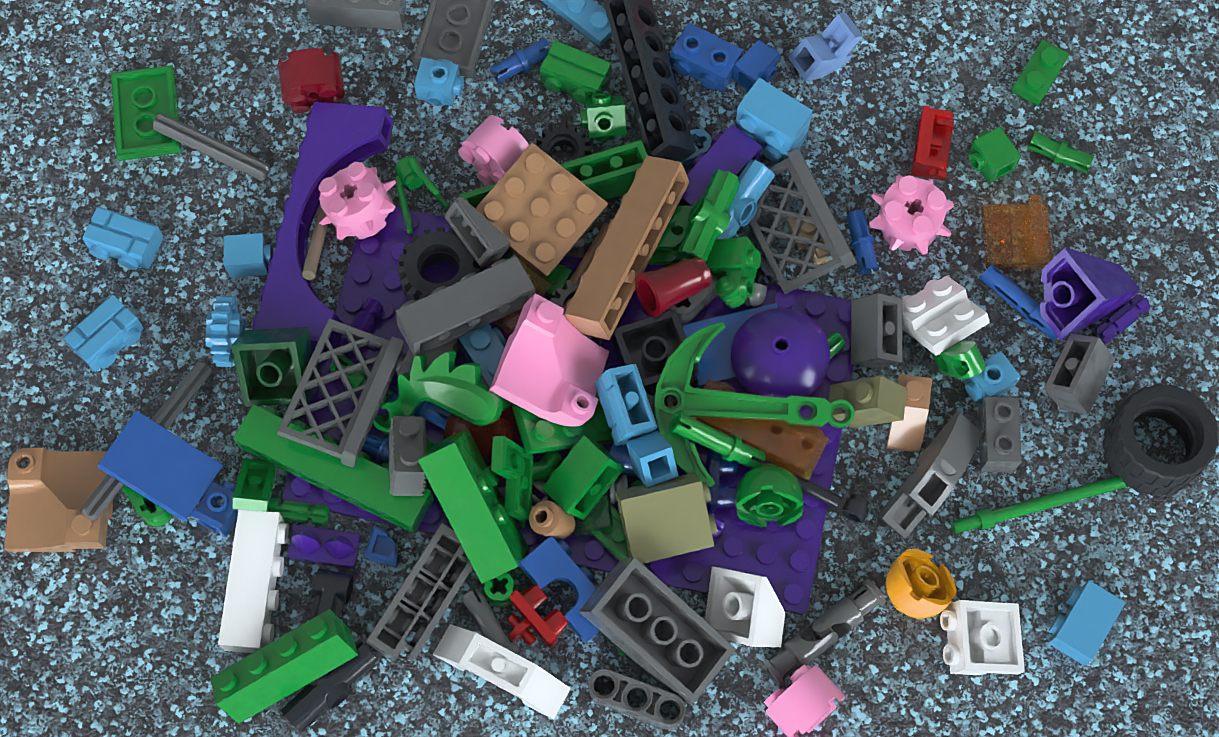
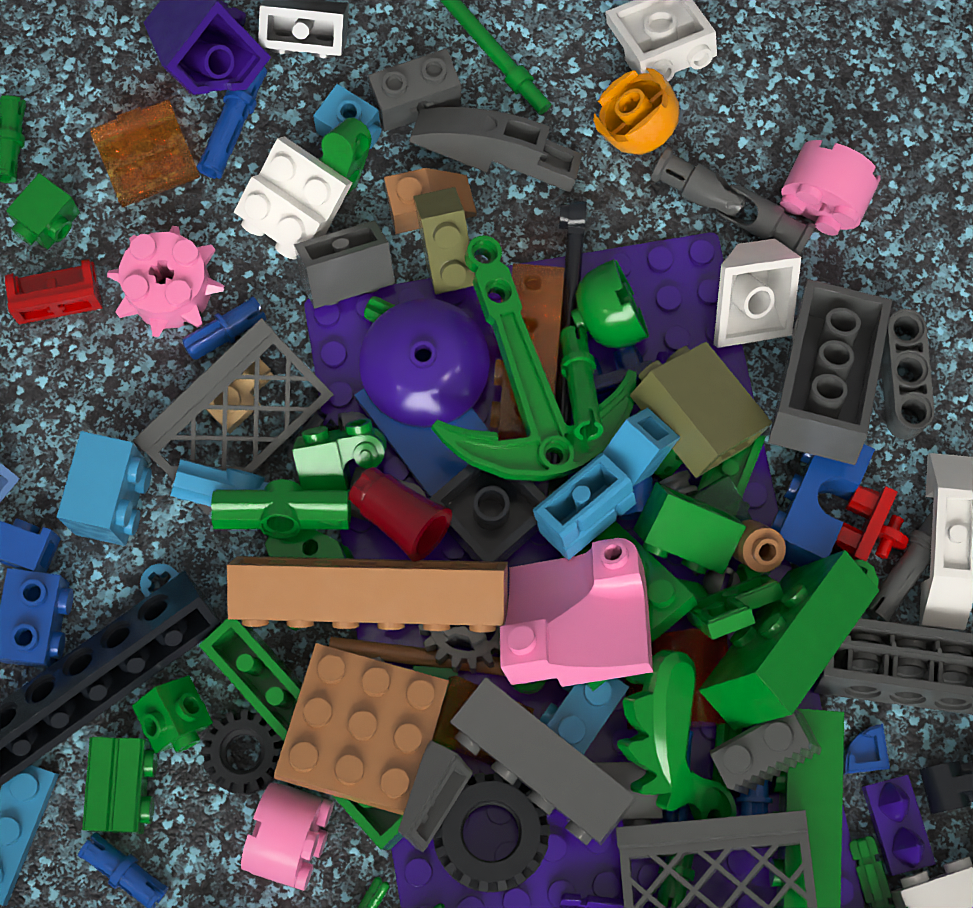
camera: 115 degrees left, 5 degrees up
(728, 152) = (187, 536): dark purple brick -> none

